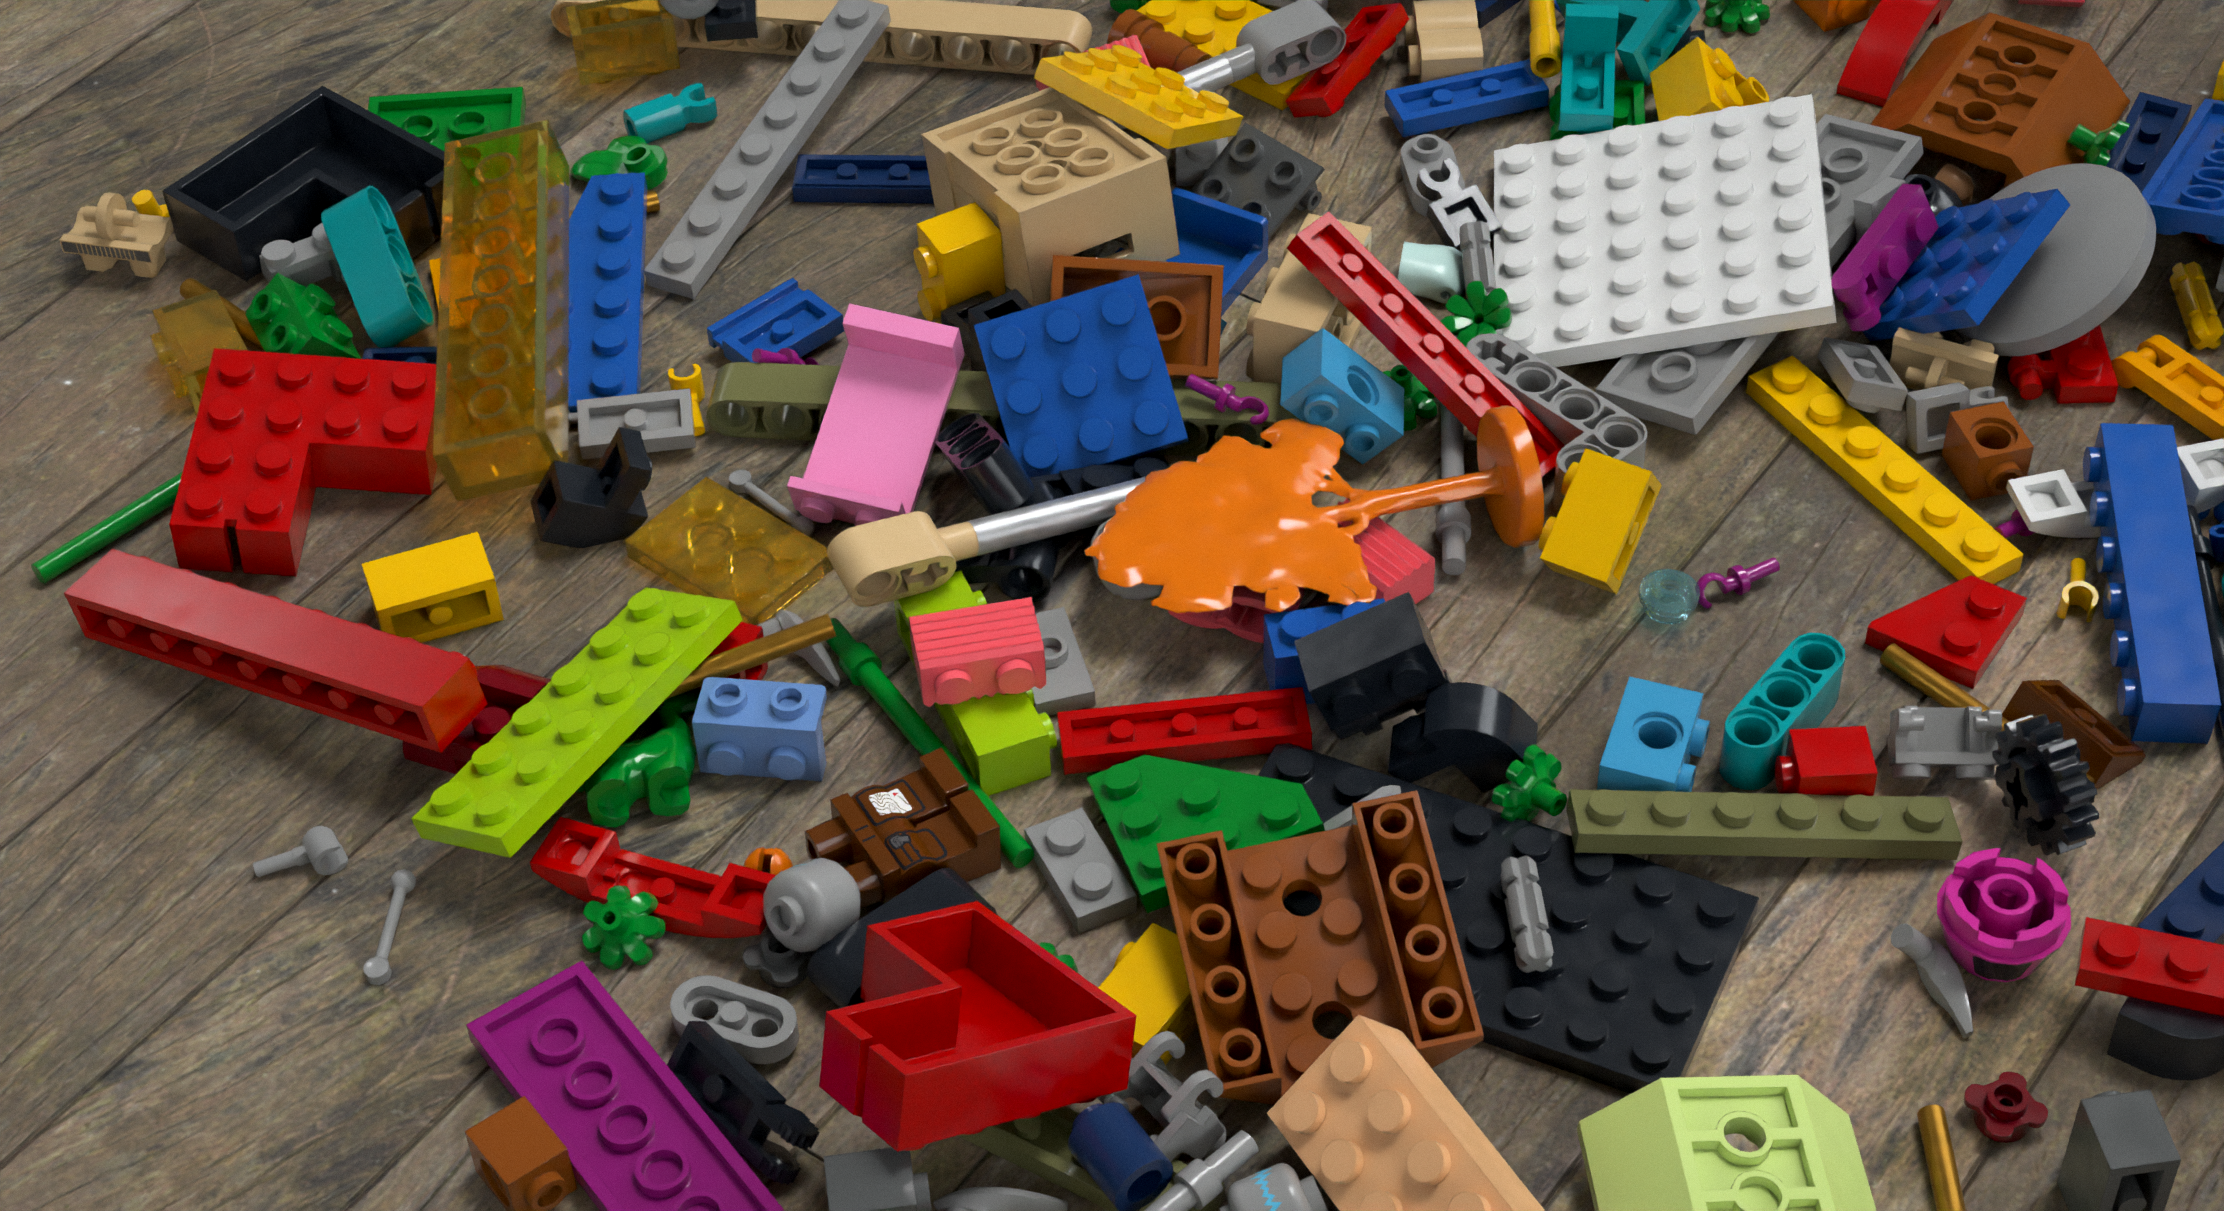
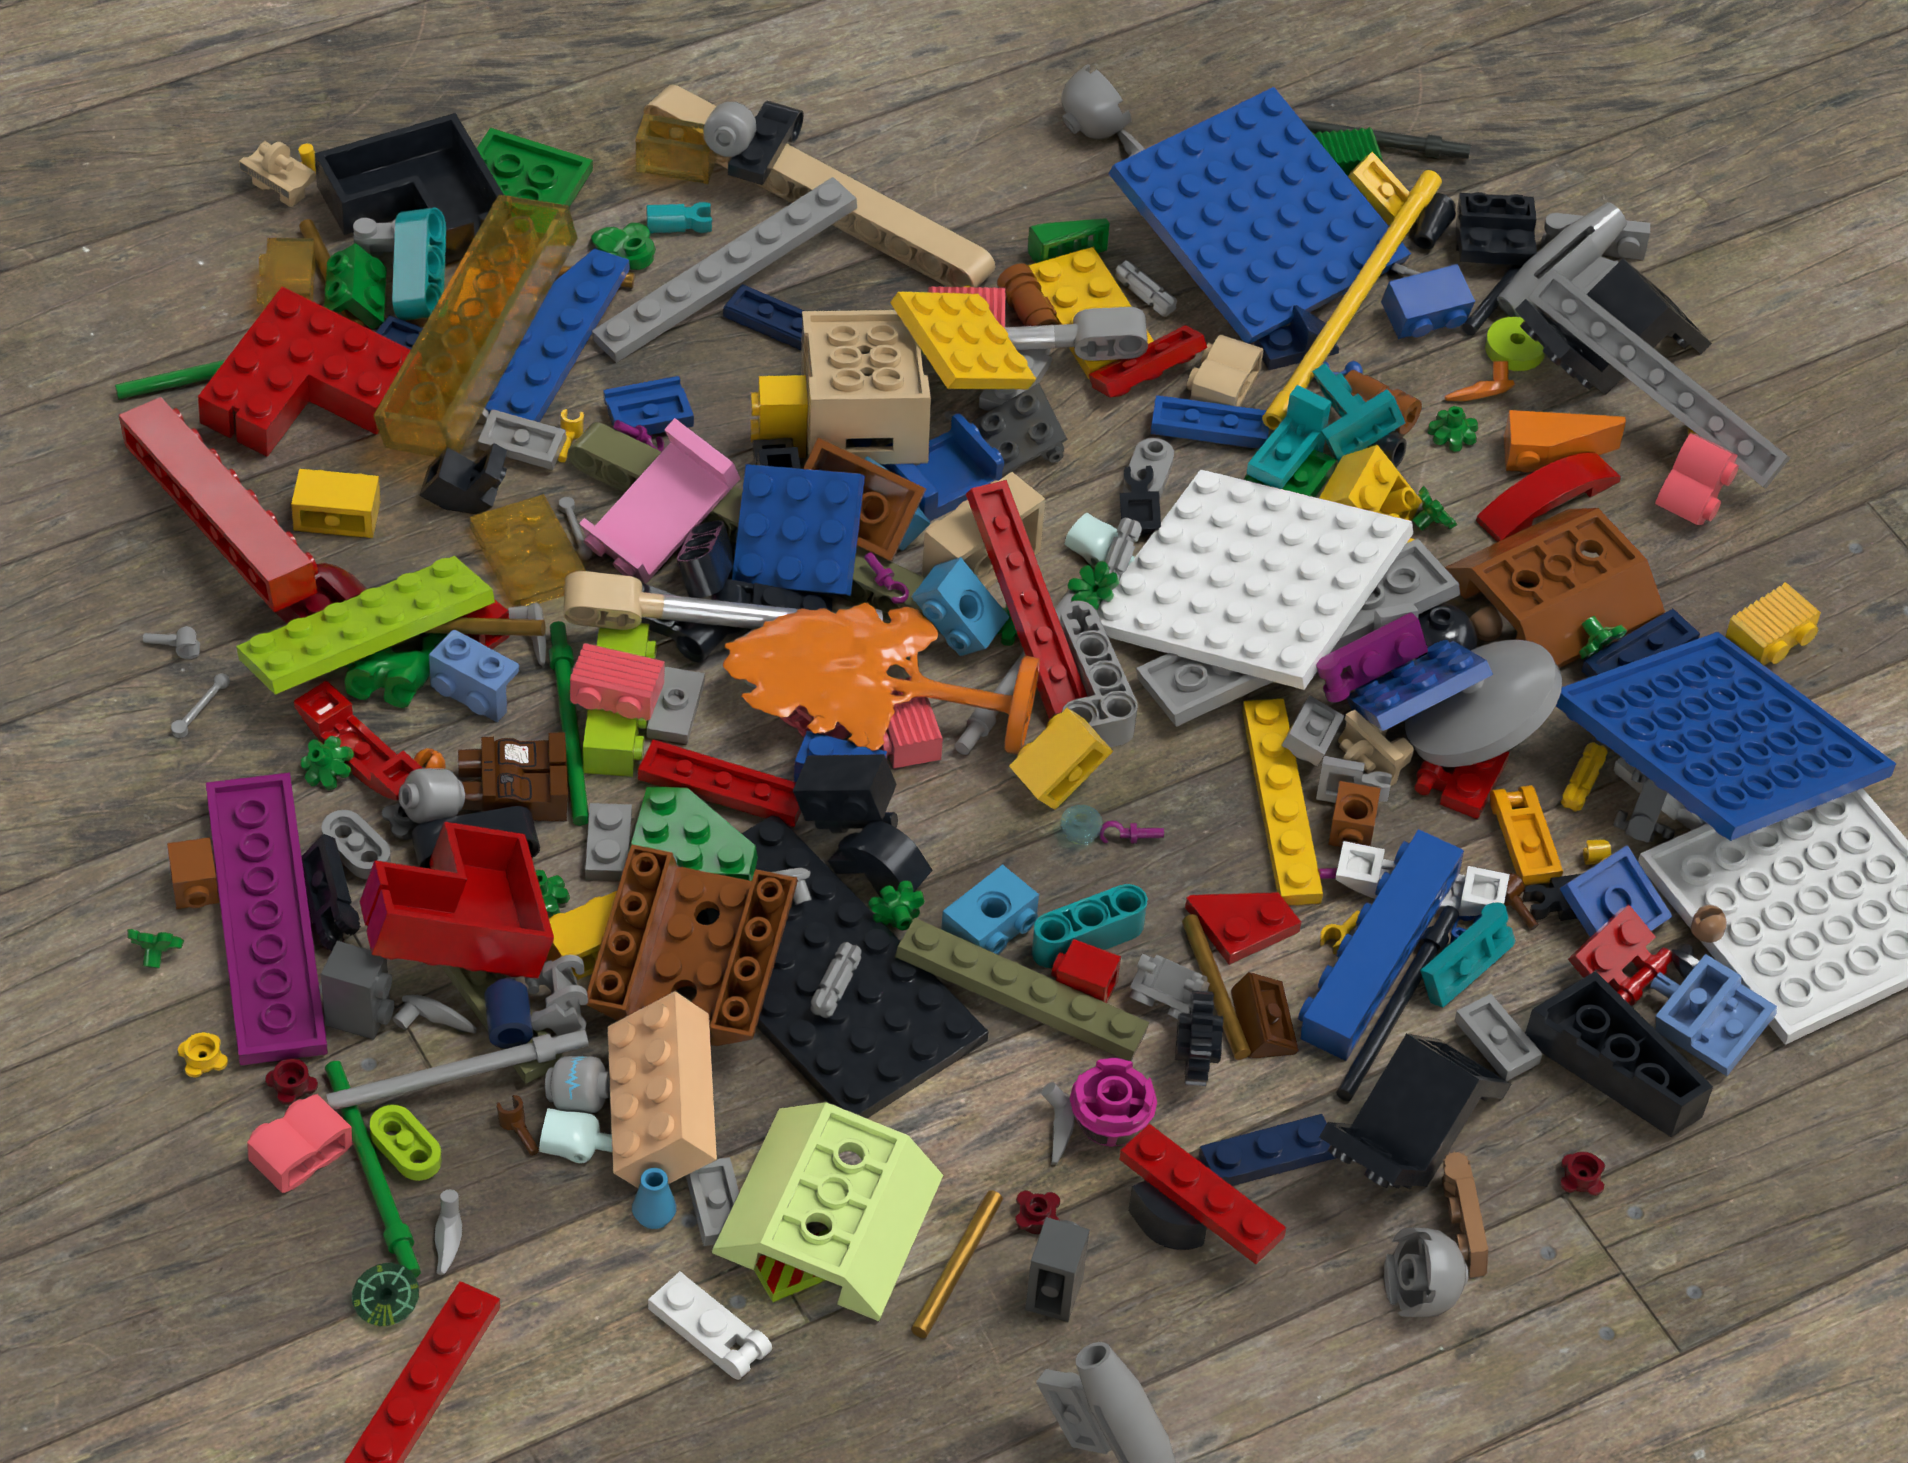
camera: 20 degrees right, 5 degrees up
(1782, 85) = (1432, 512): none -> green plant

